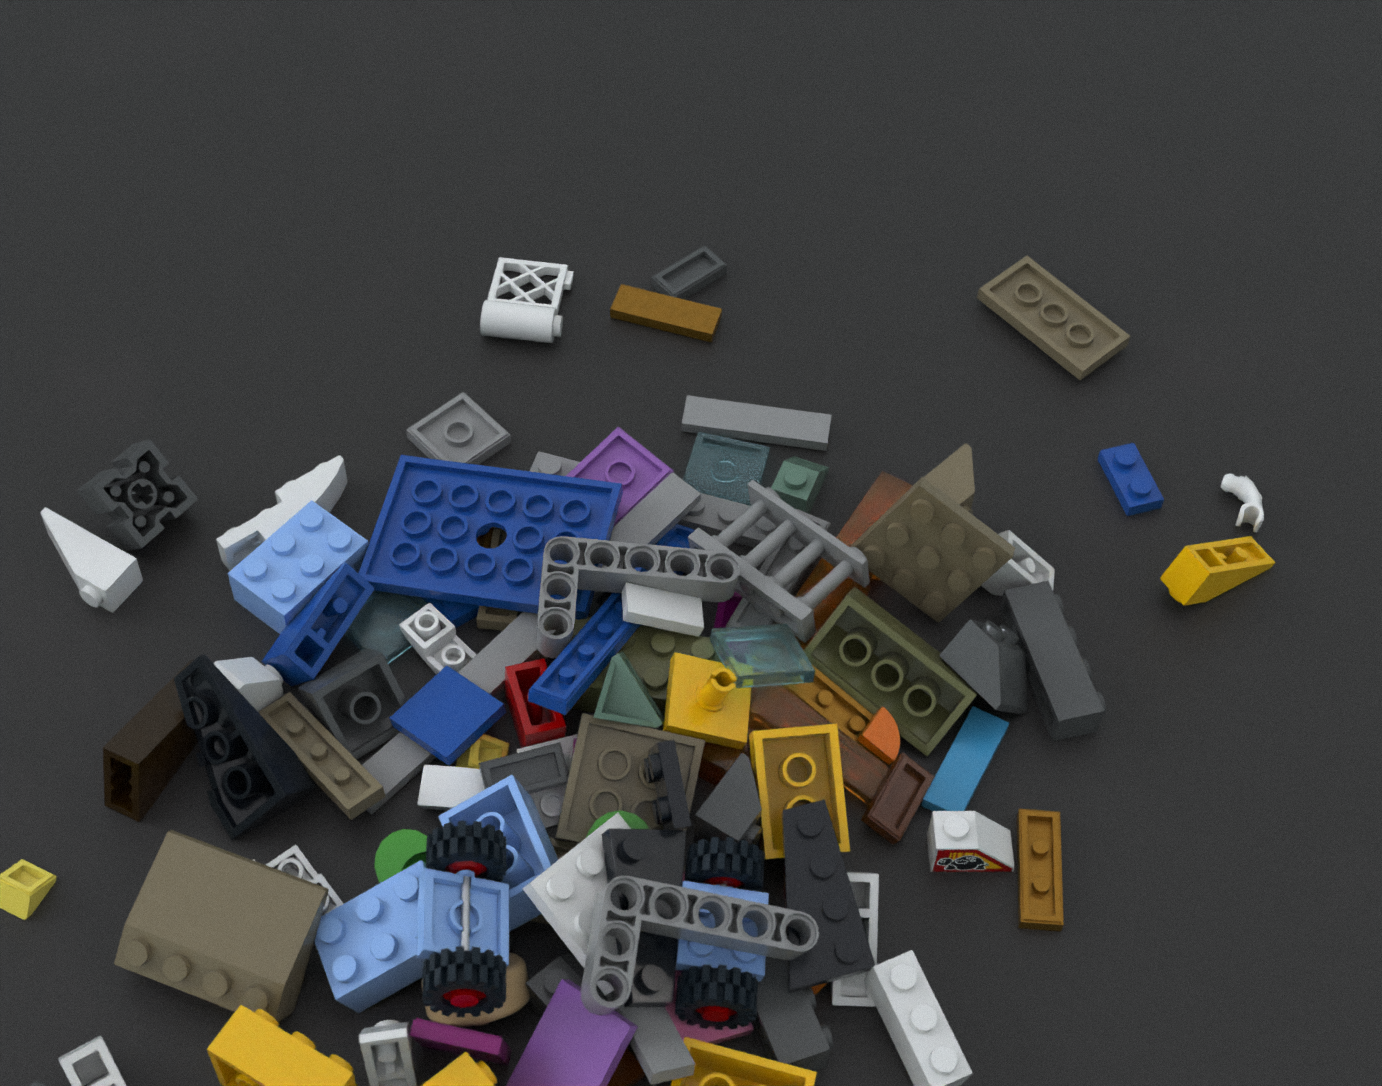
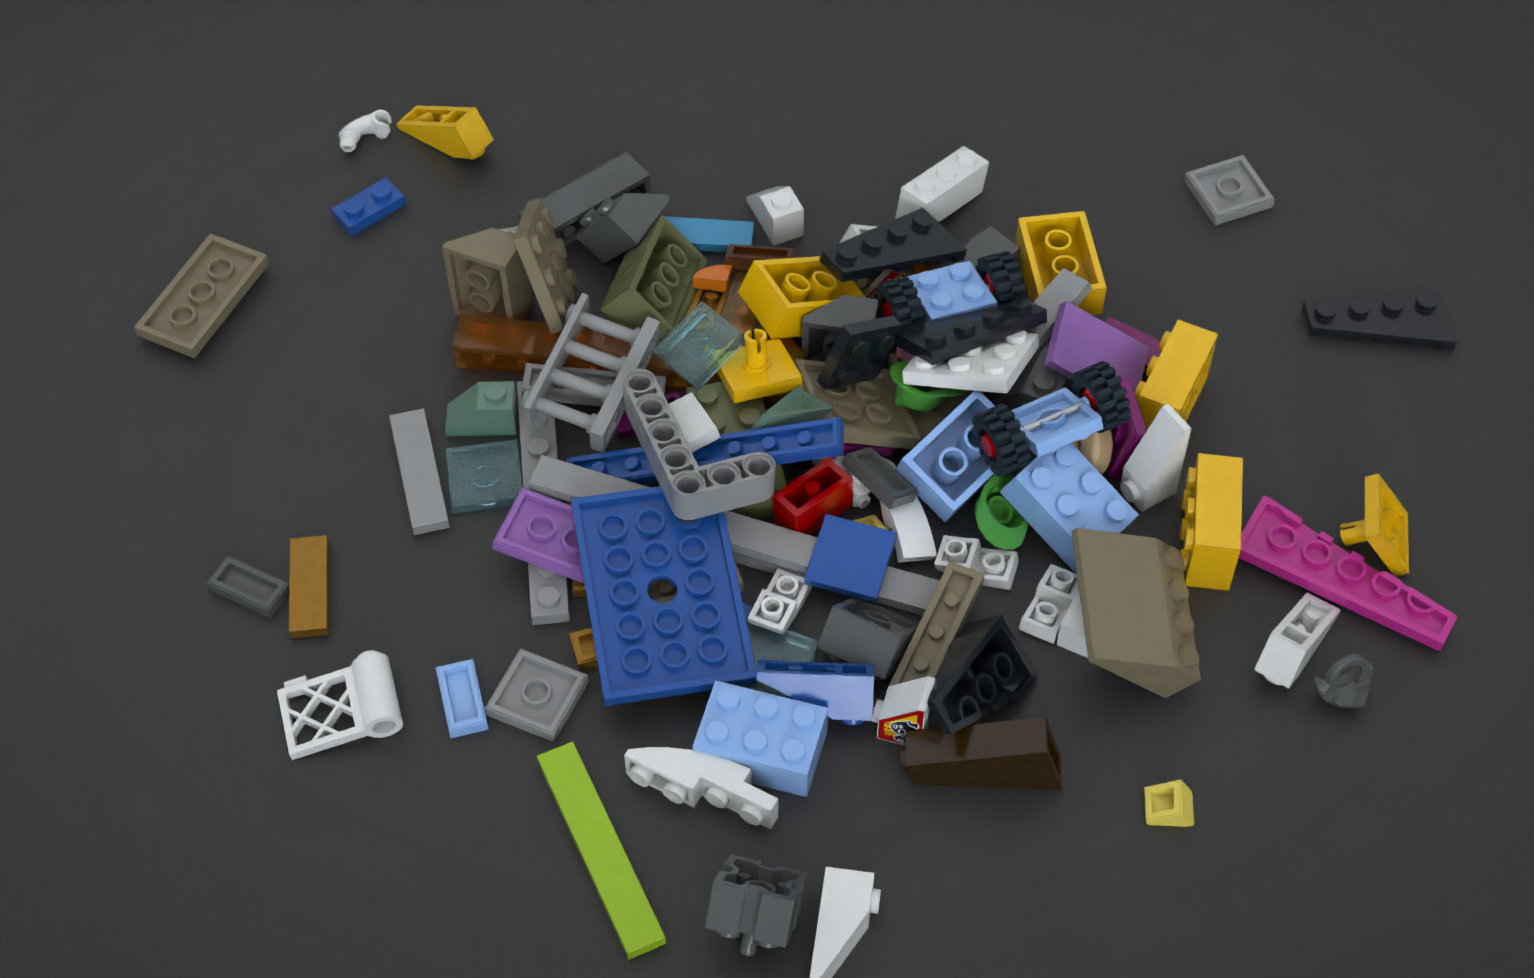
camera: 110 degrees left, 0 degrees up
(280, 430) = (601, 851): none -> lime tile
(403, 816) = (995, 564): none -> white slope
(488, 383) = (461, 698): none -> light blue tile
(683, 925) = (982, 297): light grey beam -> none
(1039, 870) = (768, 173): pearl gold tile -> none

